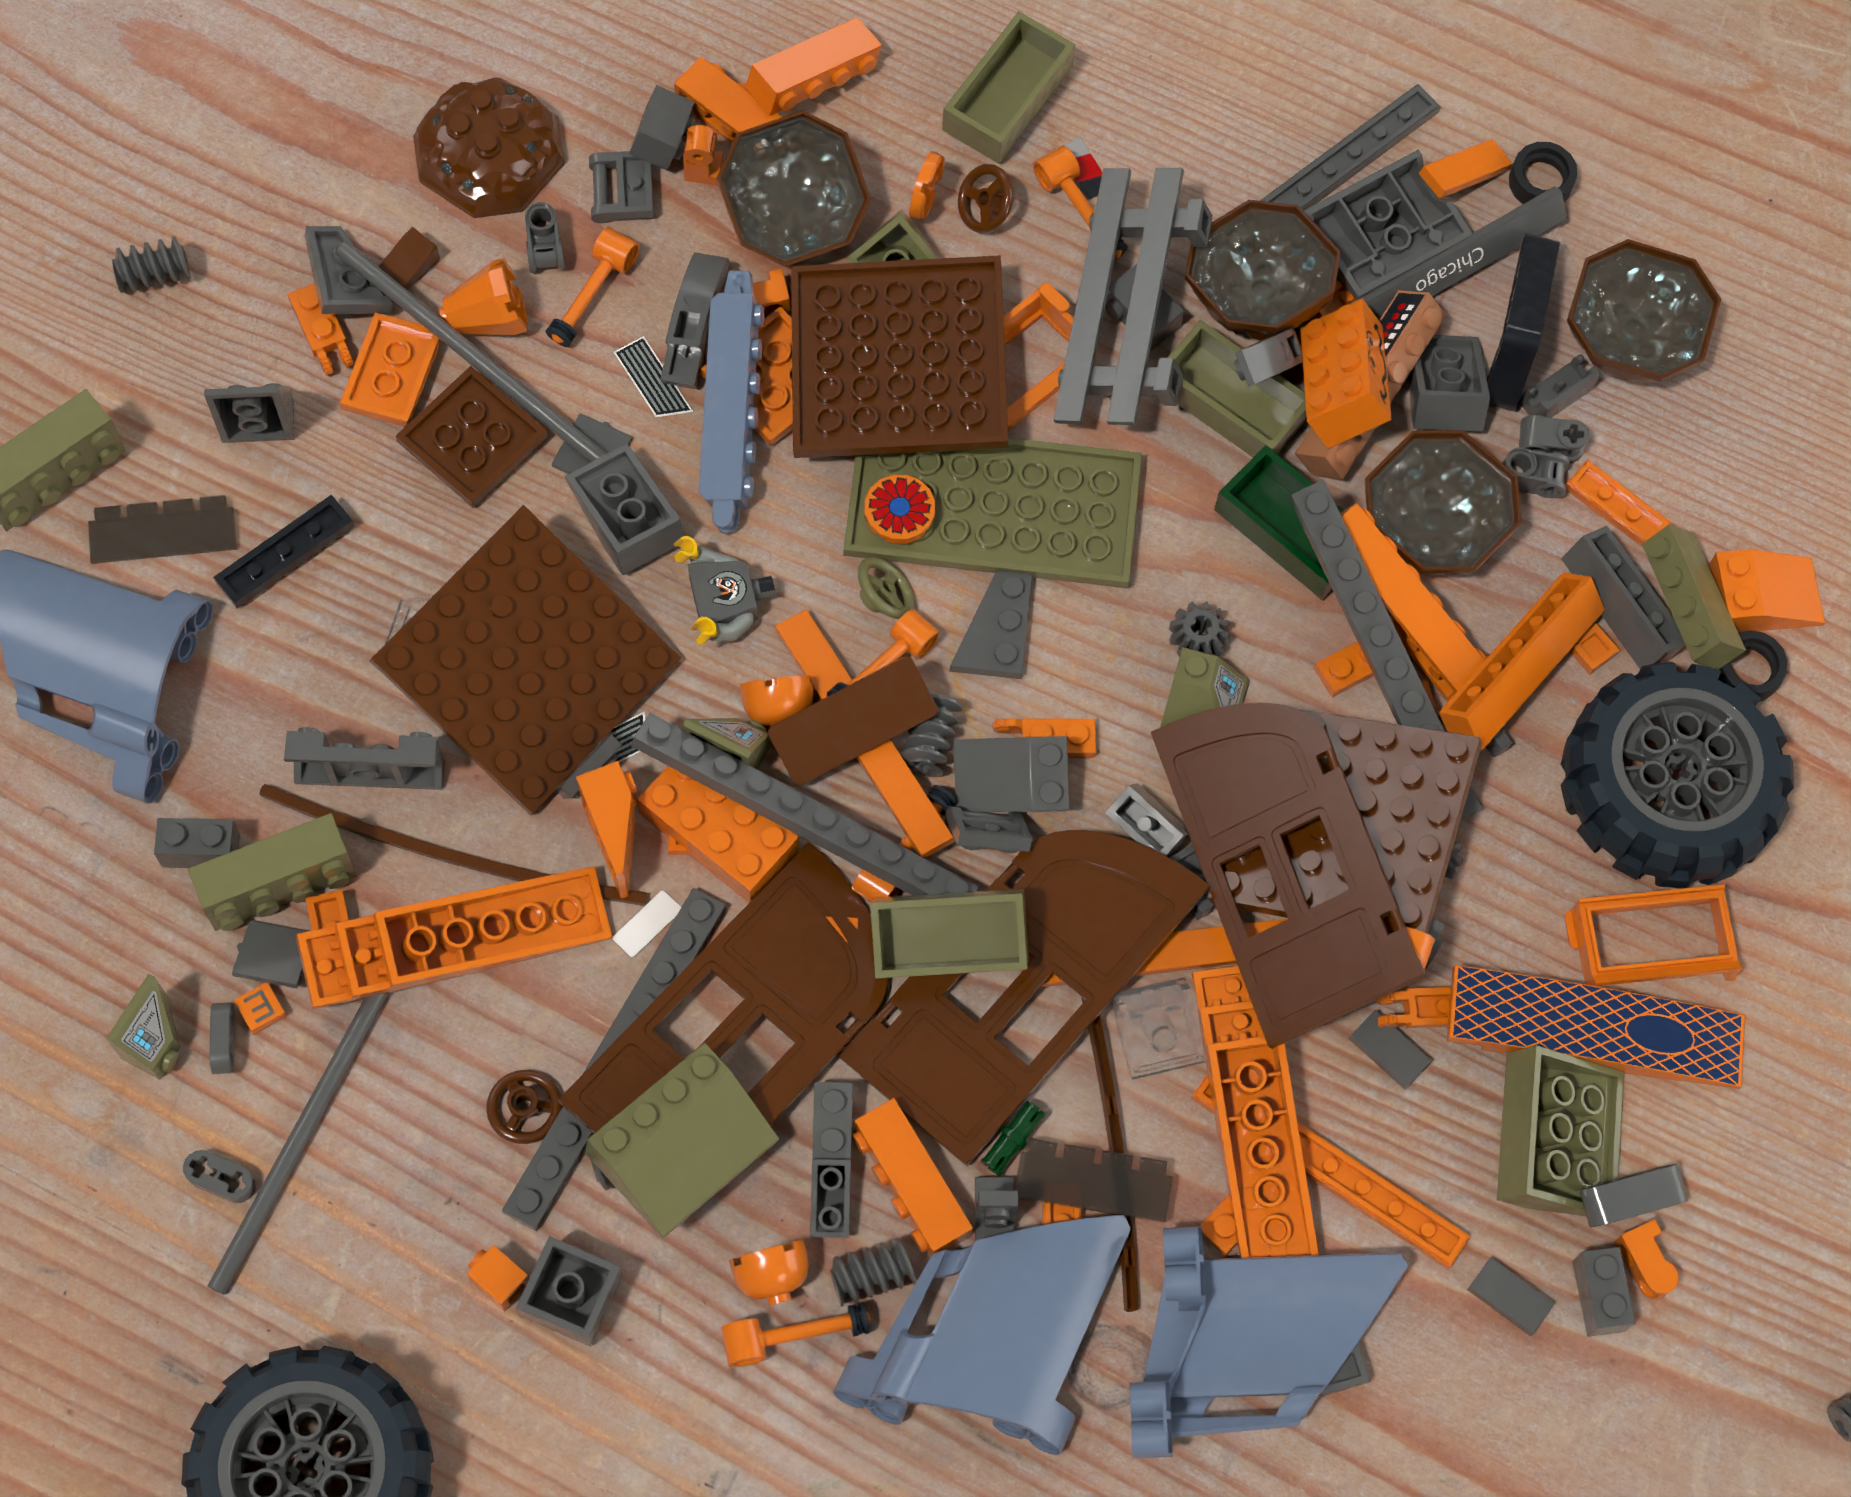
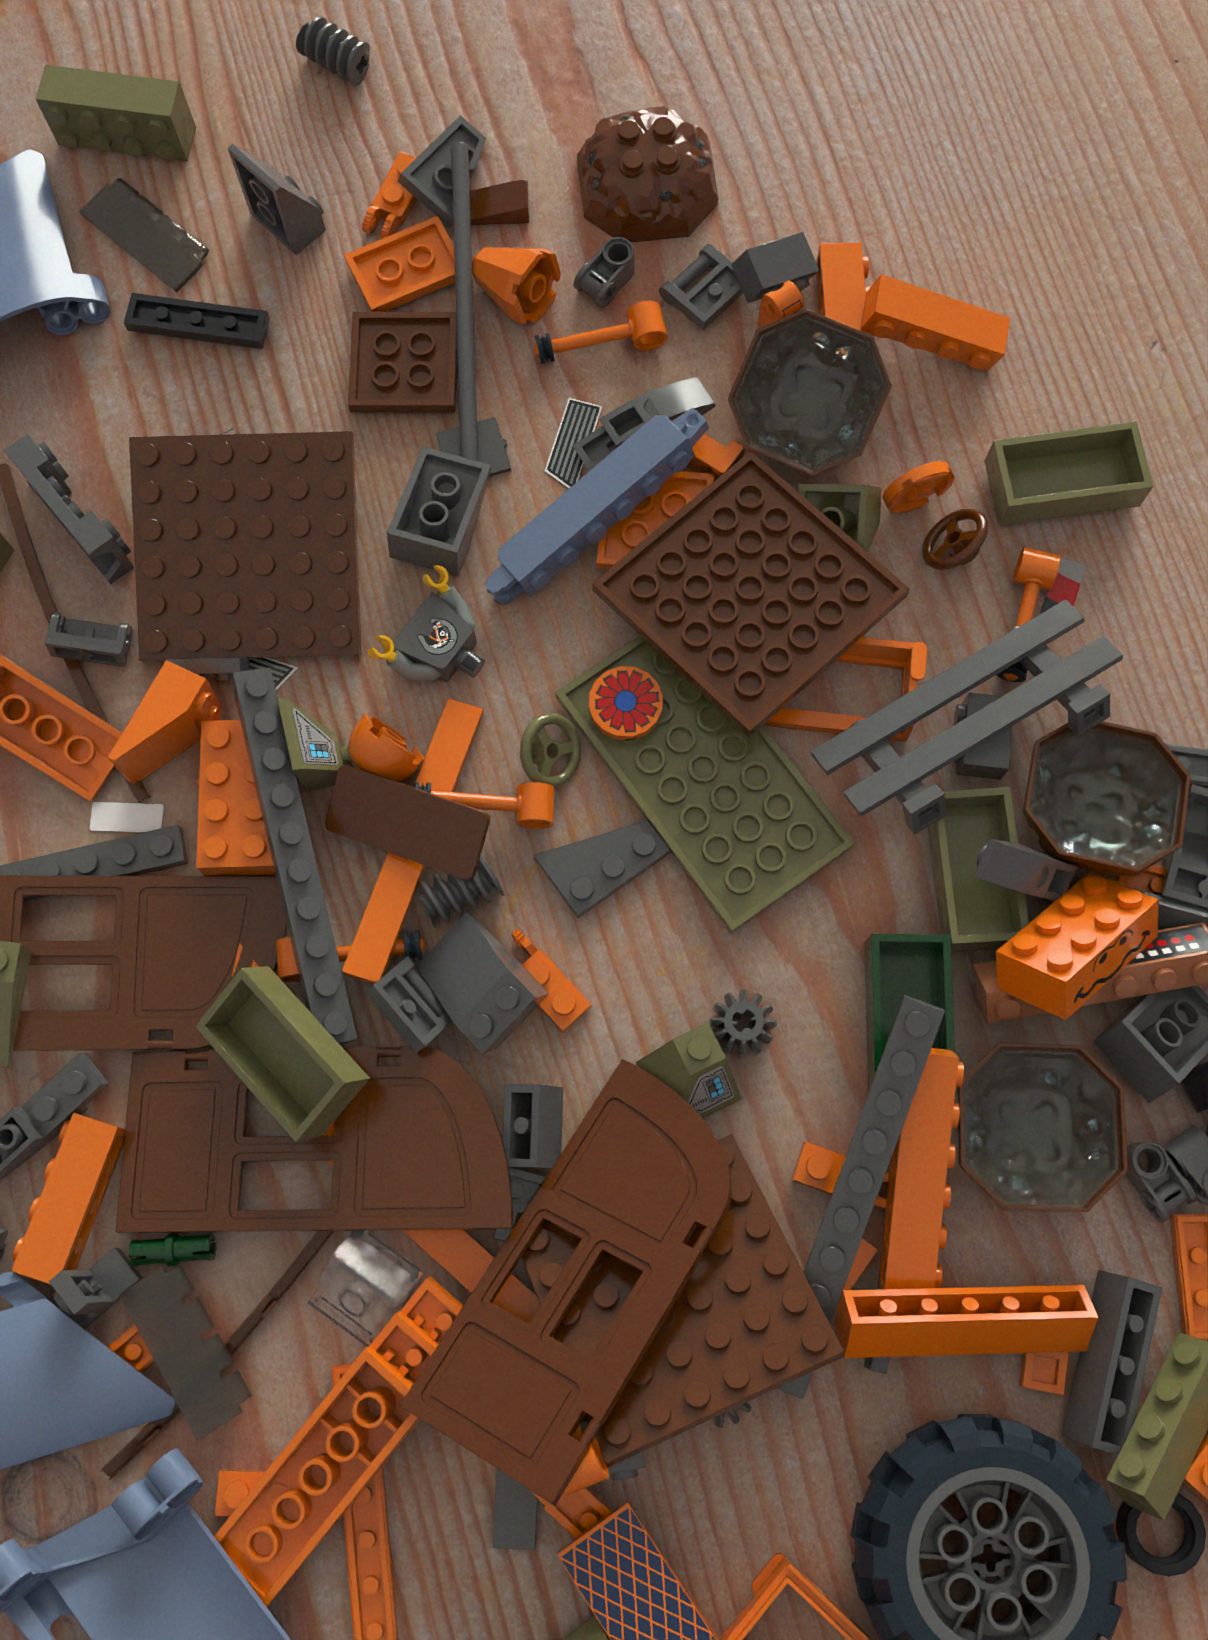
camera: 55 degrees right, 5 degrees up
(483, 834) = (88, 640): none -> dark grey hinge

